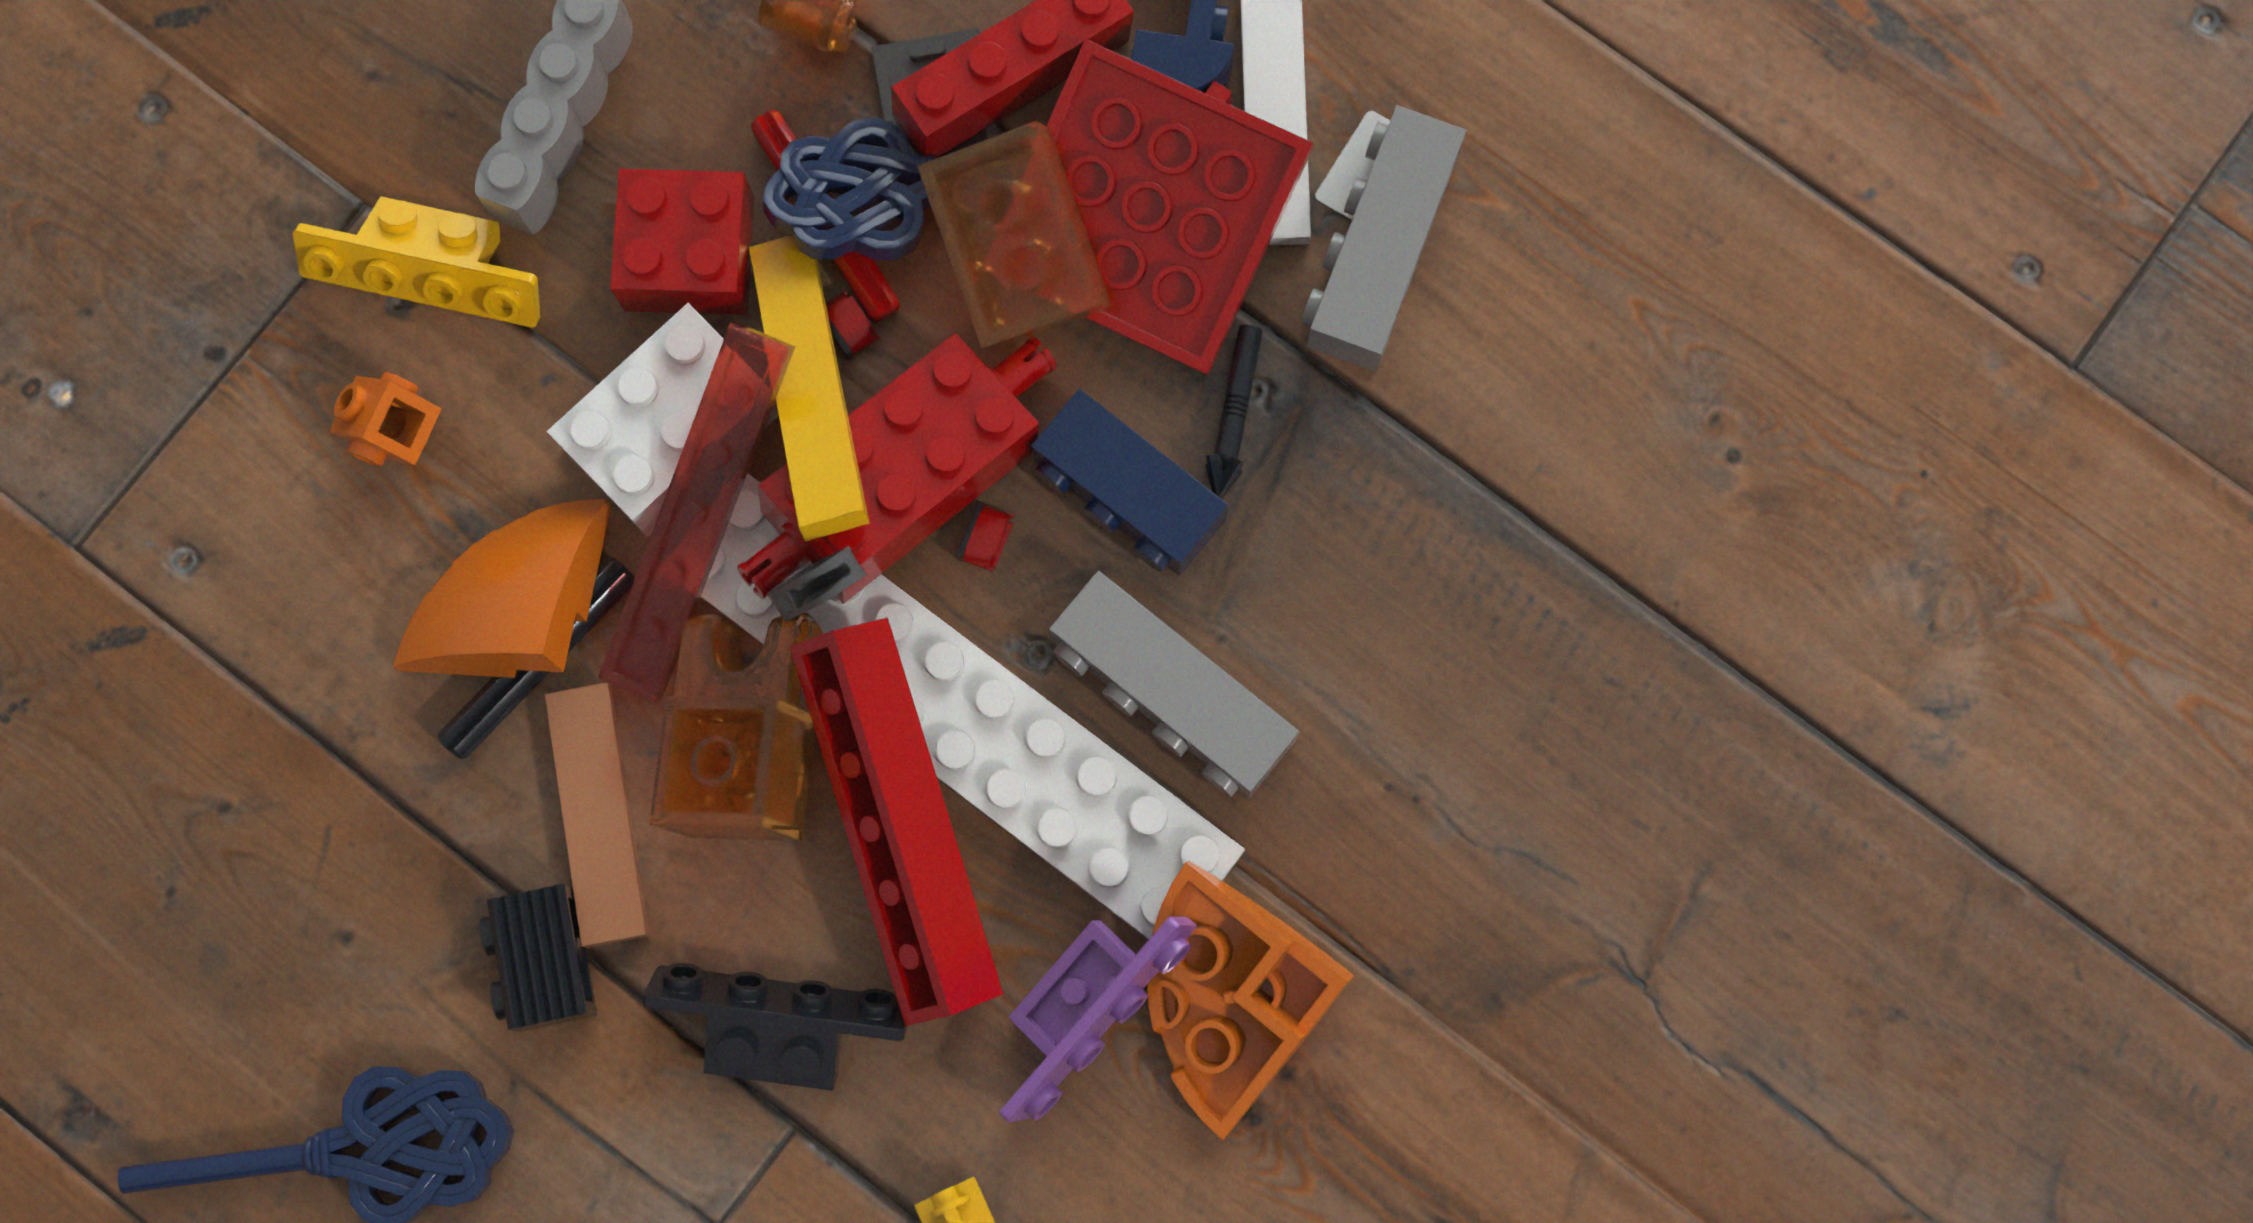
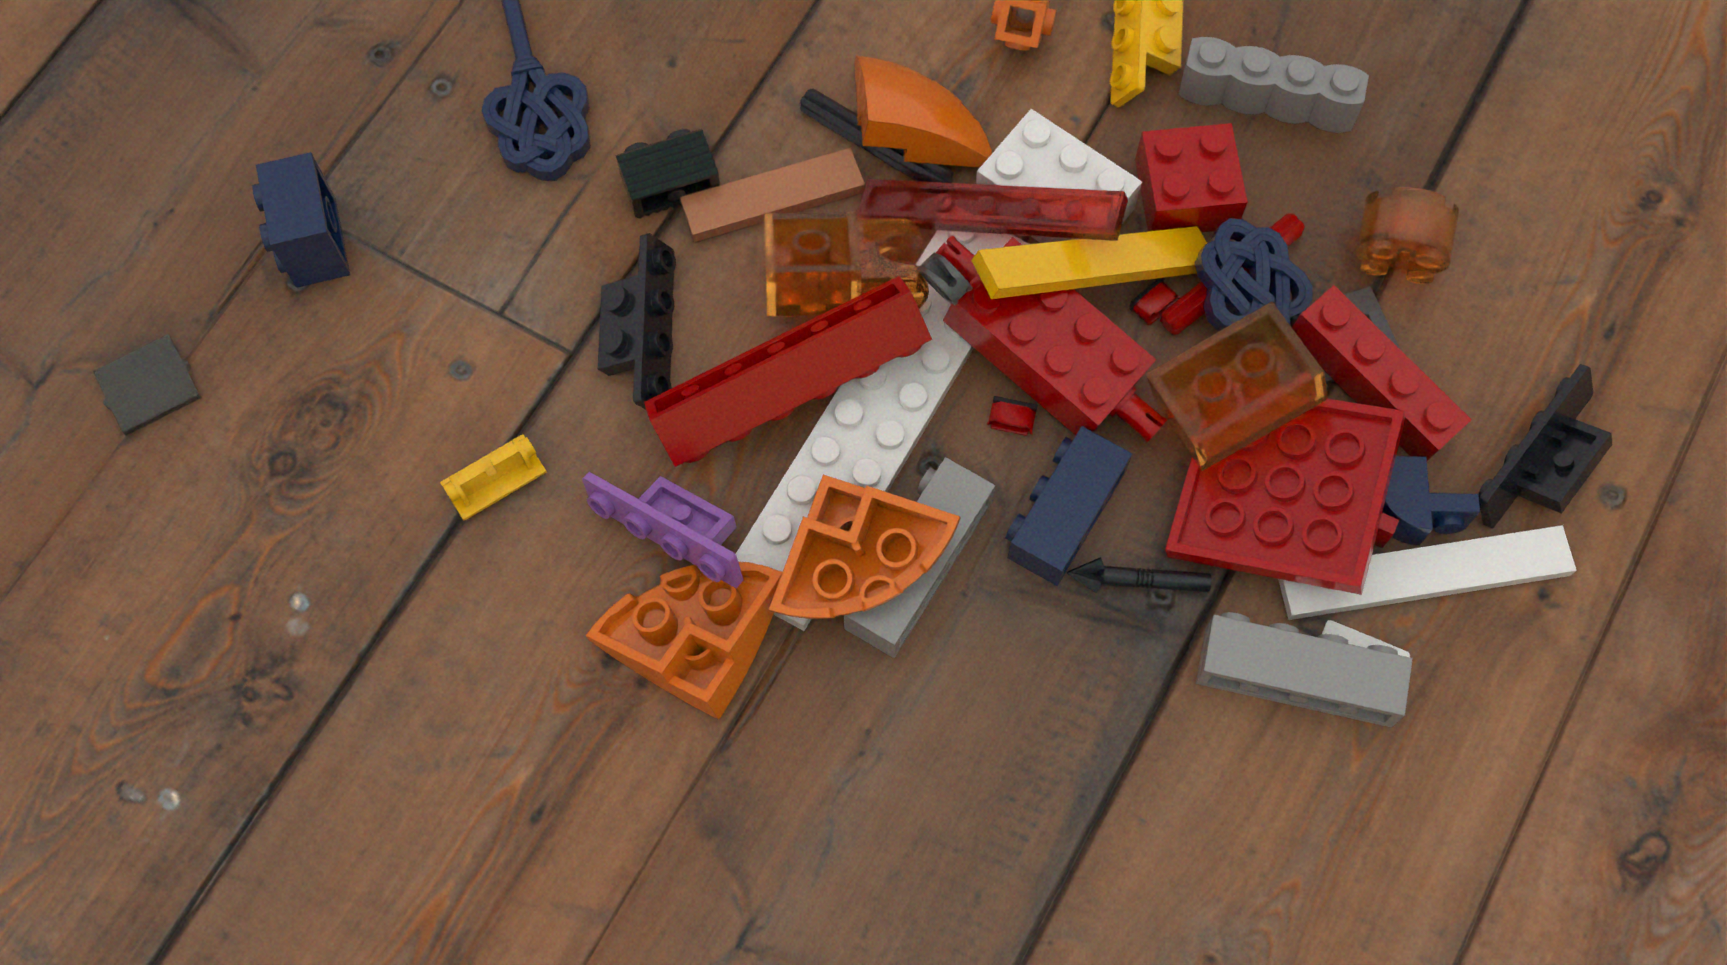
camera: 80 degrees right, 10 degrees down
(1173, 756) = (858, 551): none -> orange brick

